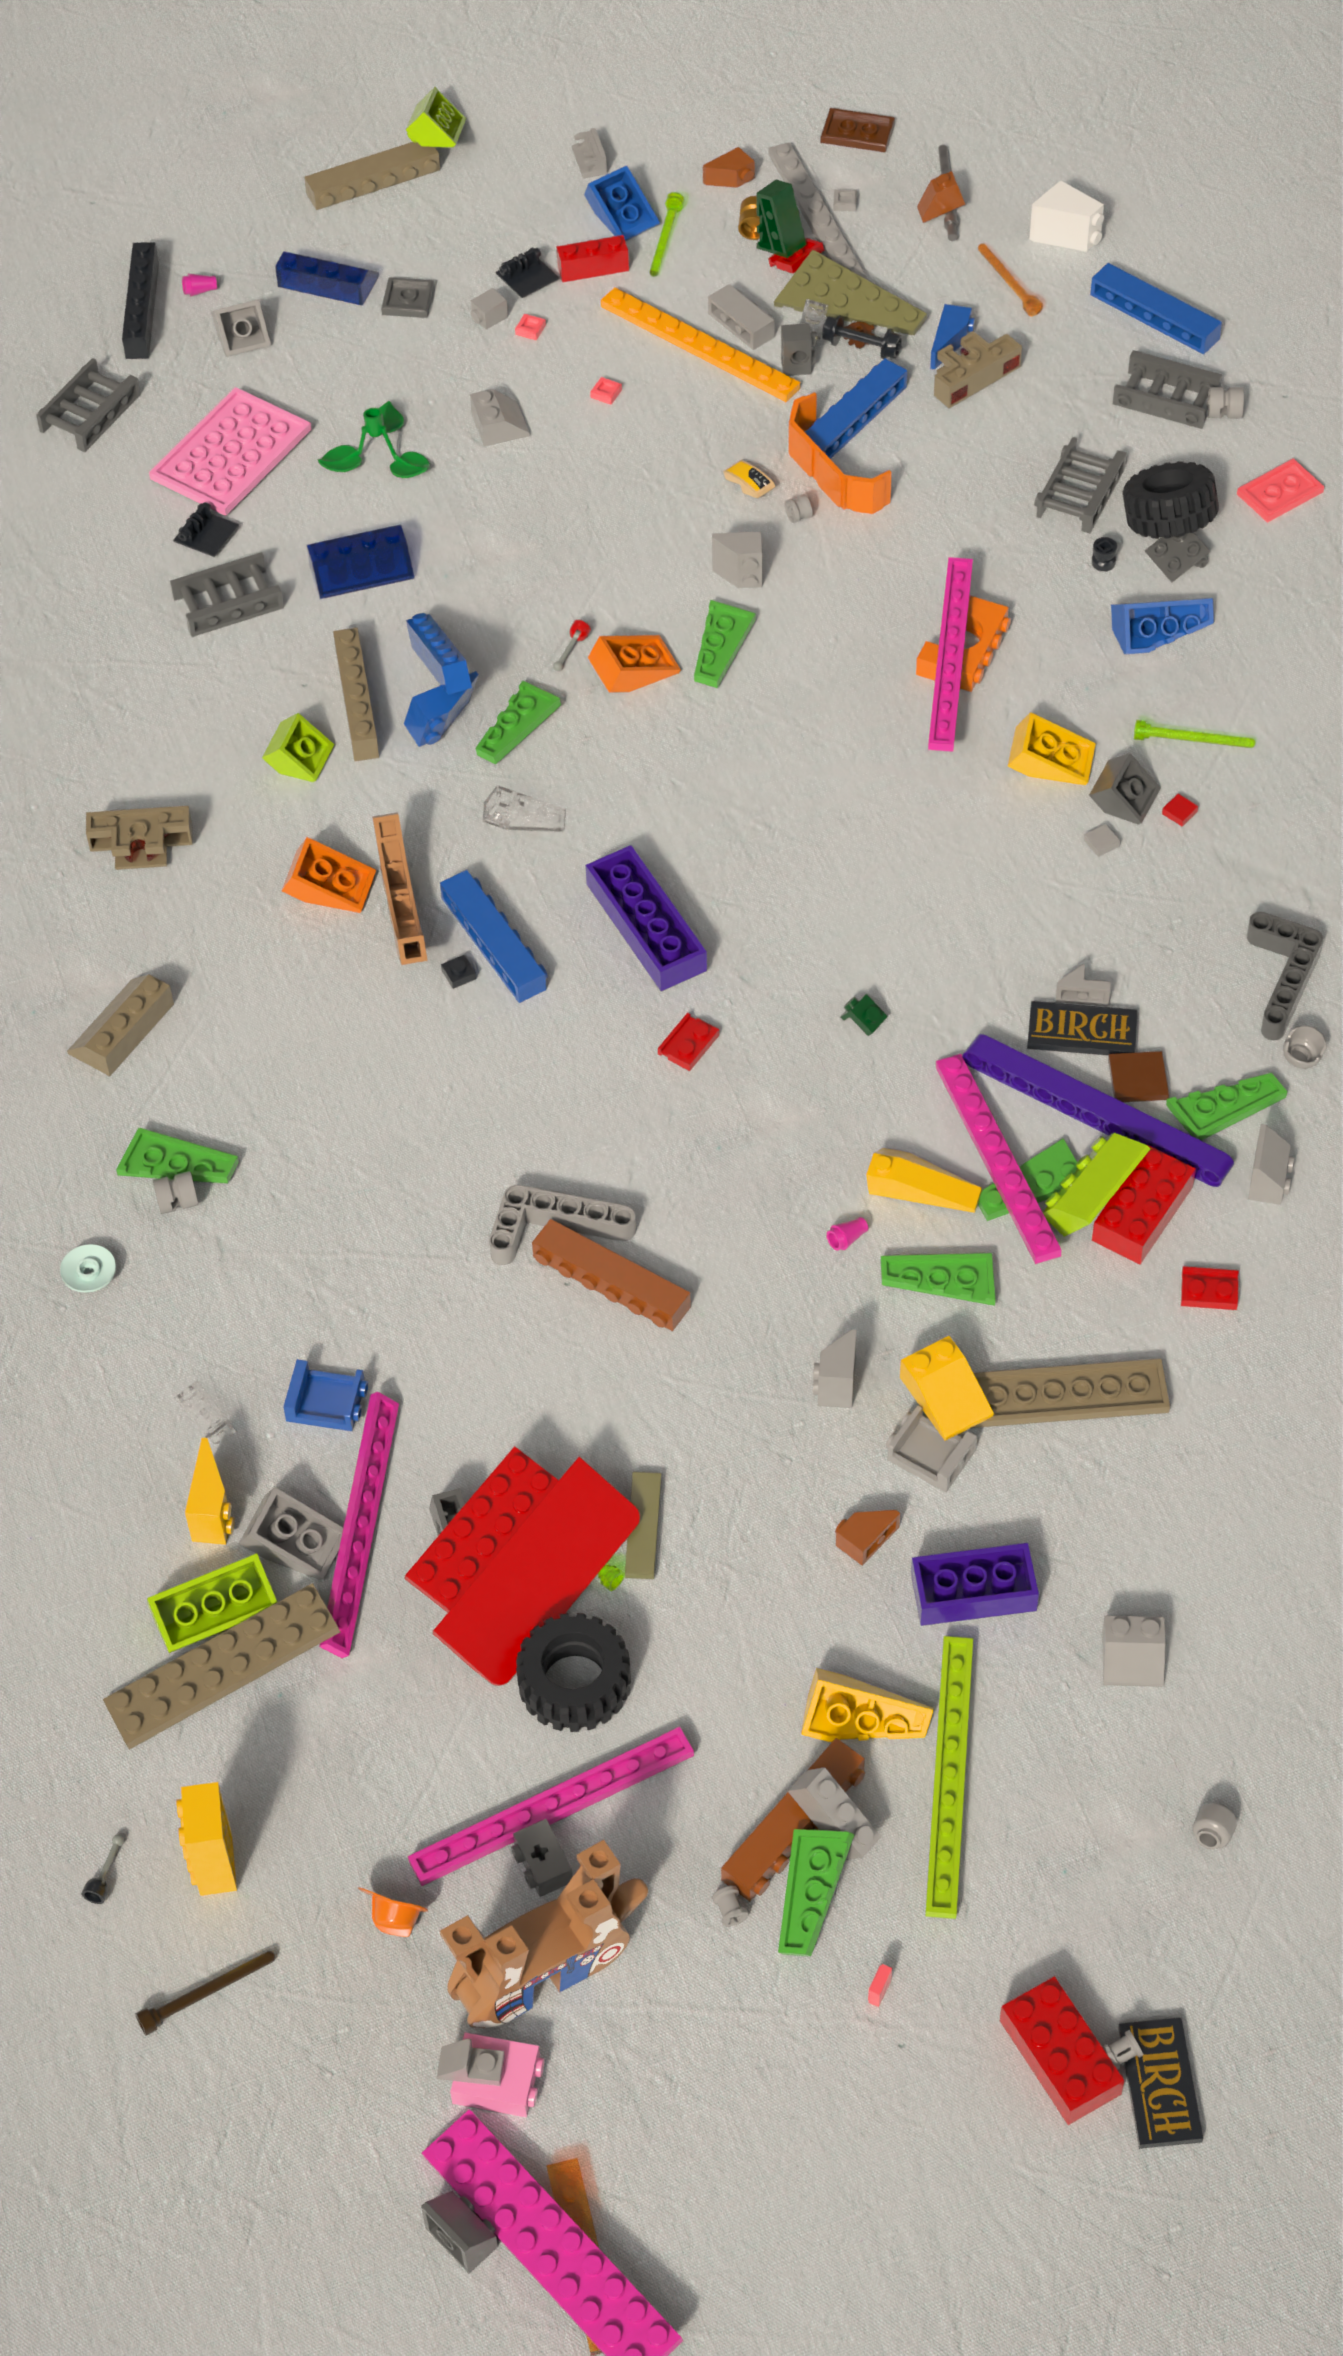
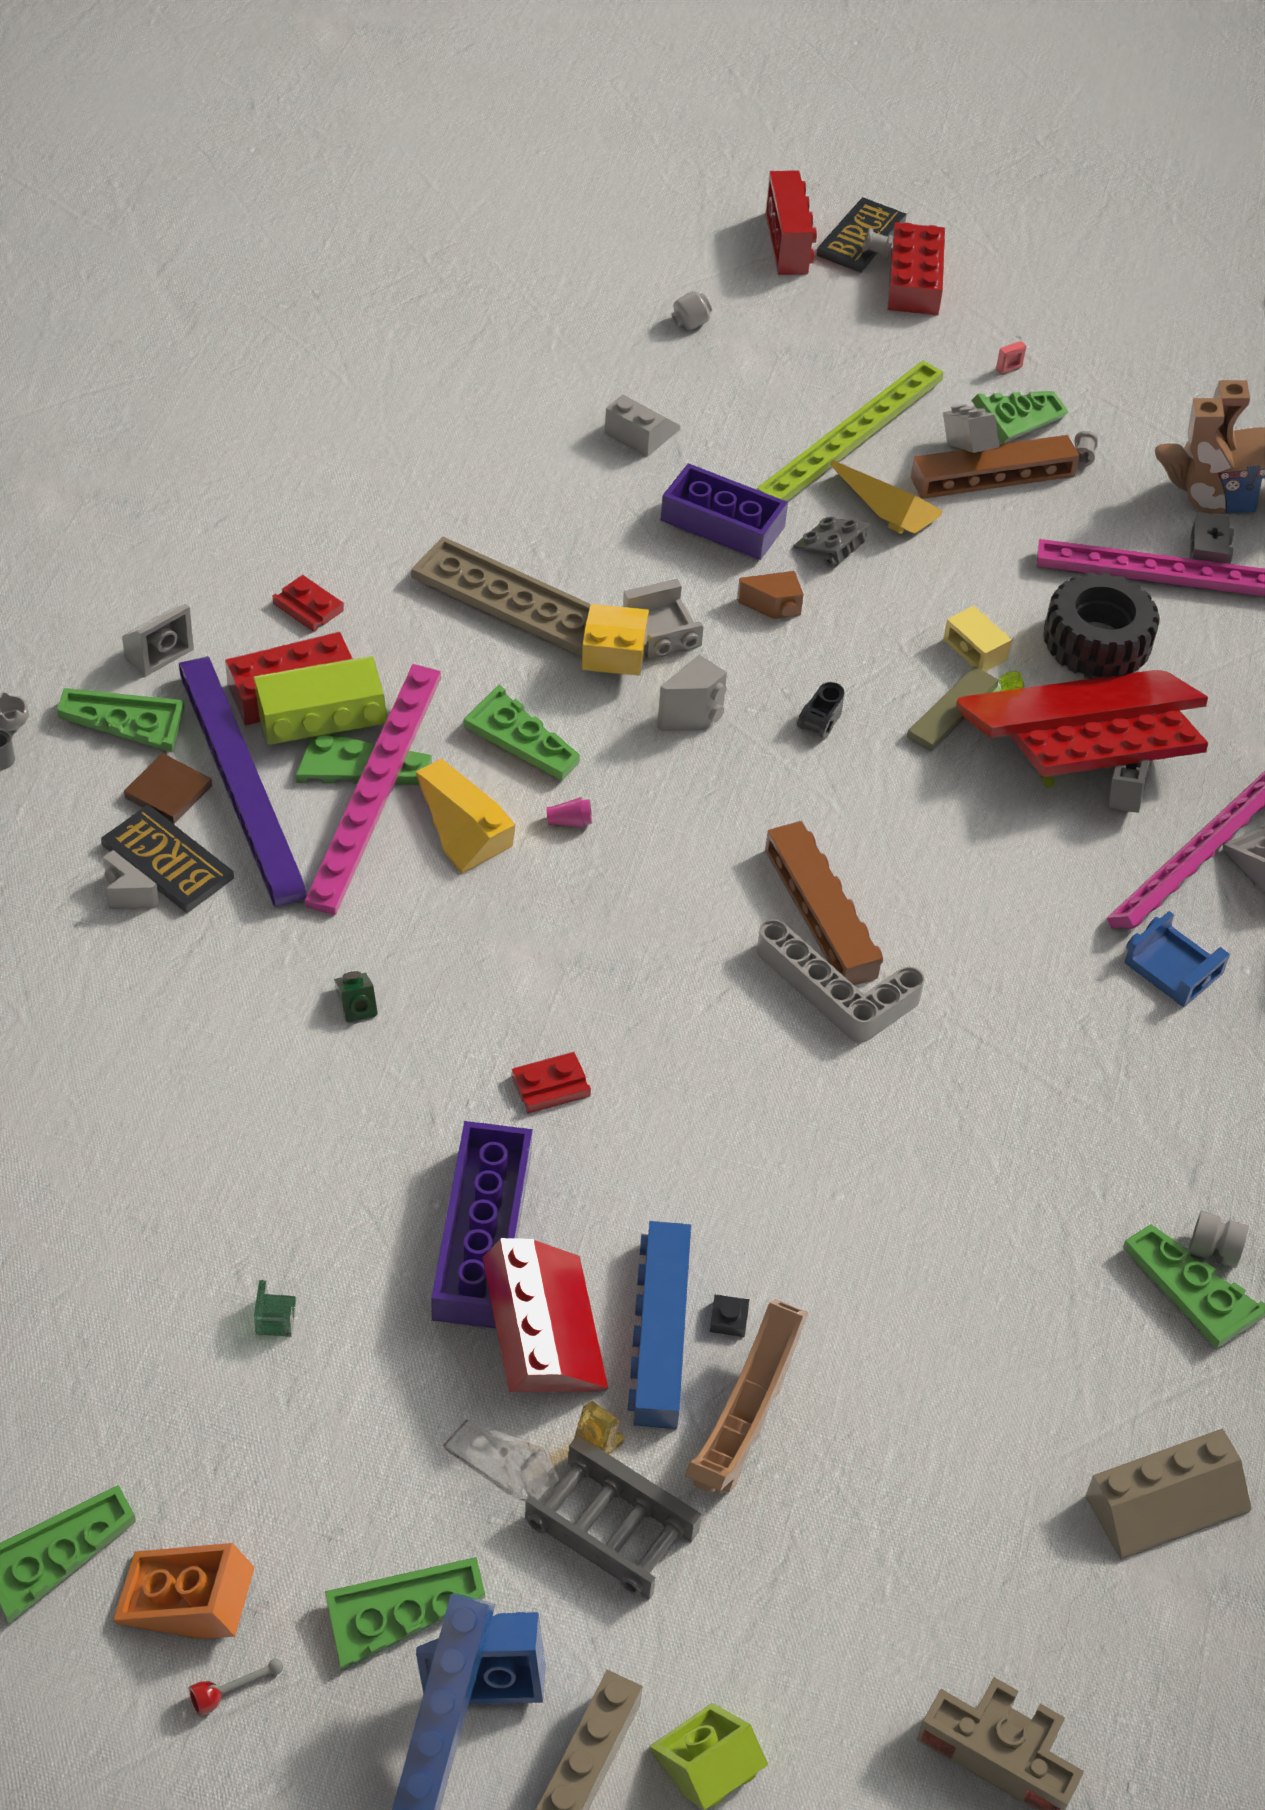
camera: 150 degrees left, 5 degrees down
(328, 877) = (802, 1528): orange slope -> none
(441, 842) = (616, 1481): none -> dark grey fence
(479, 853) = (599, 1428): none -> clear yellow bracket
(555, 877) = (543, 1318): none -> red slope
(669, 1600) = (977, 639): none -> light yellow brick
(723, 810) = (273, 1313): none -> clear green panel
(738, 1441) = (823, 709): none -> black piece
(870, 1634) = (835, 538): none -> dark grey hinge
(1226, 2009) = (790, 222): none -> red brick

